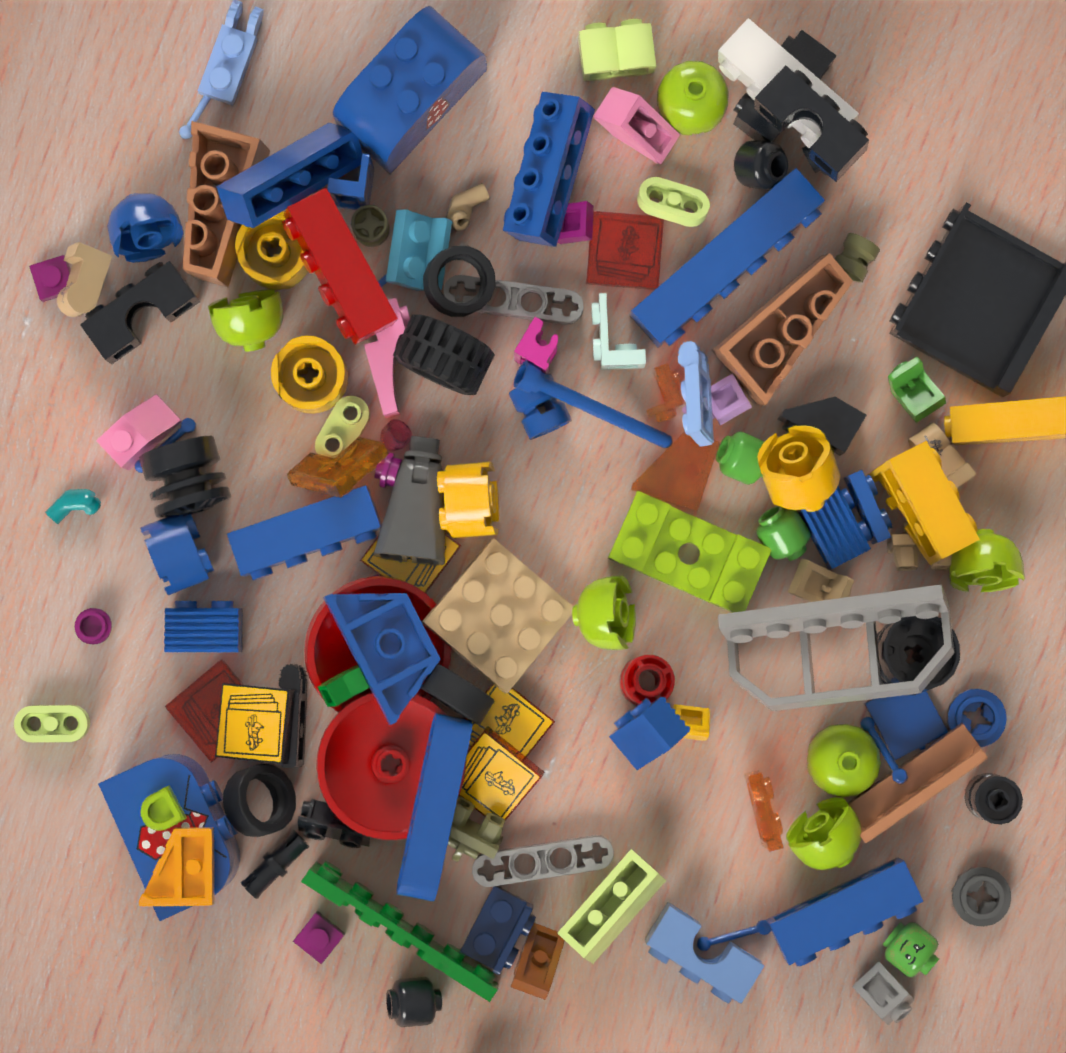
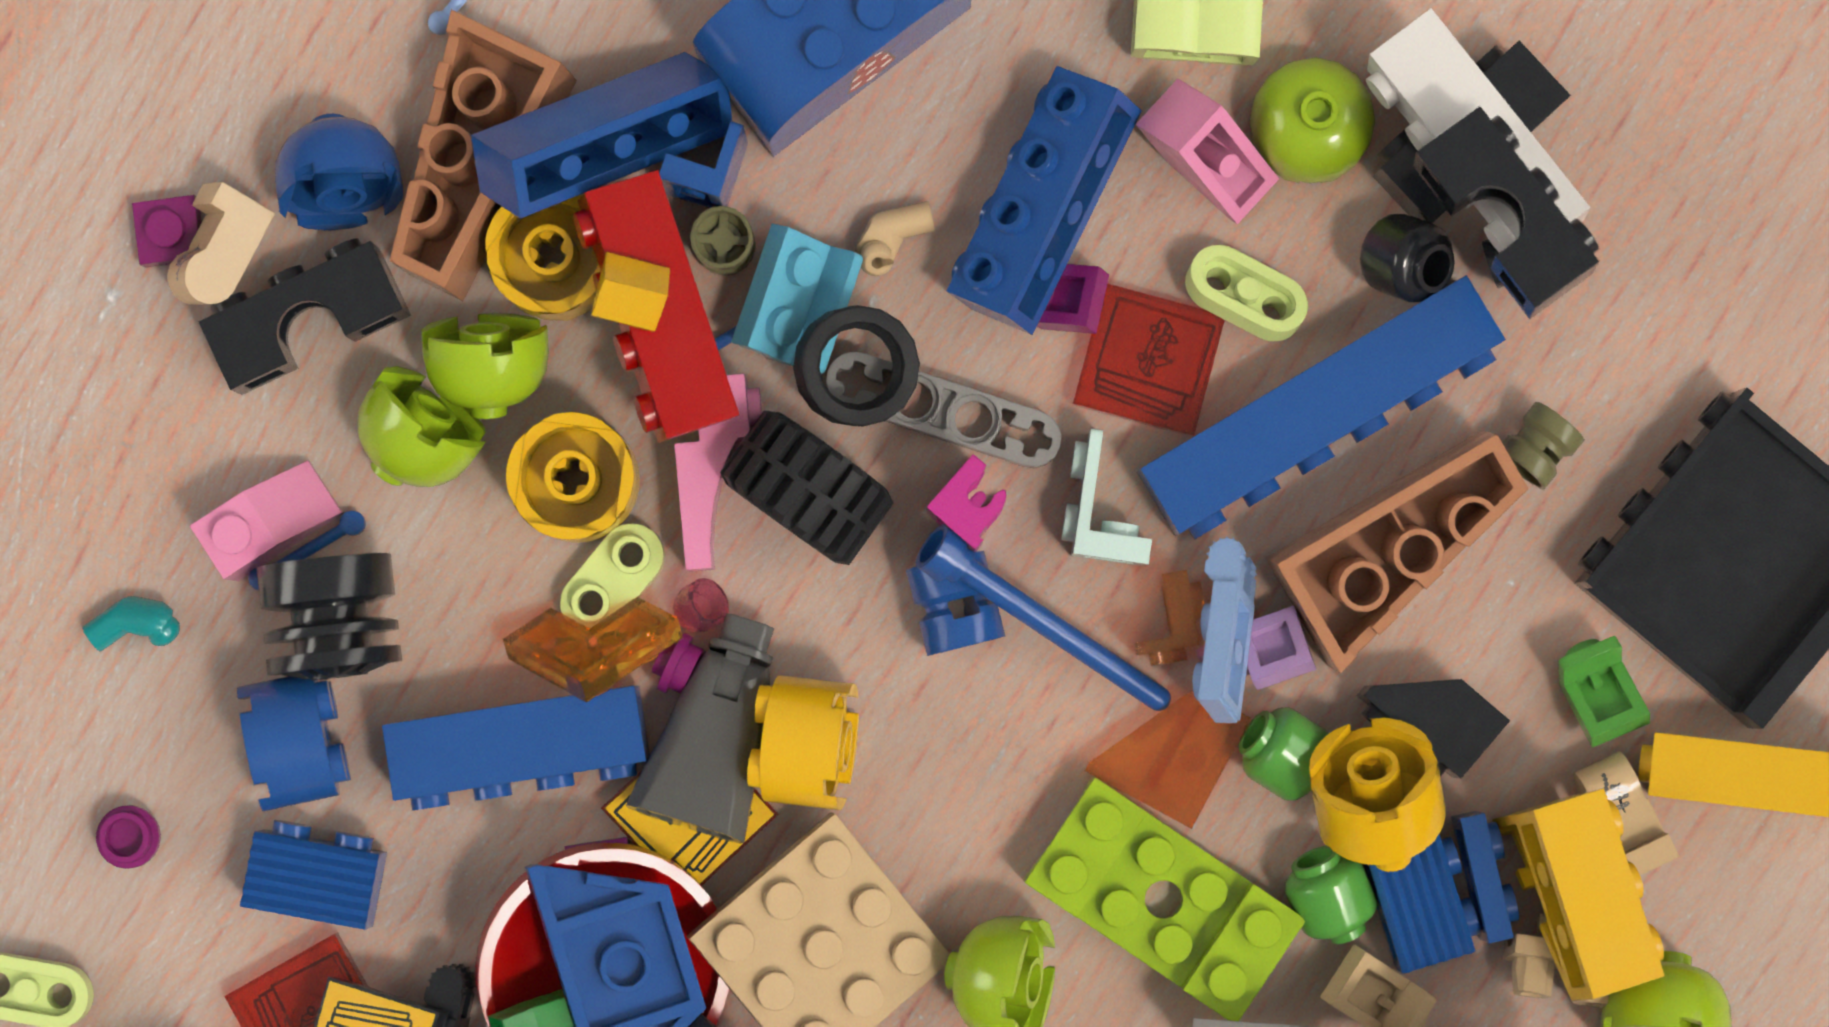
camera: 15 degrees right, 0 degrees up
(215, 366) = (414, 433): none -> lime cylinder
(323, 258) = (631, 292): none -> yellow slope

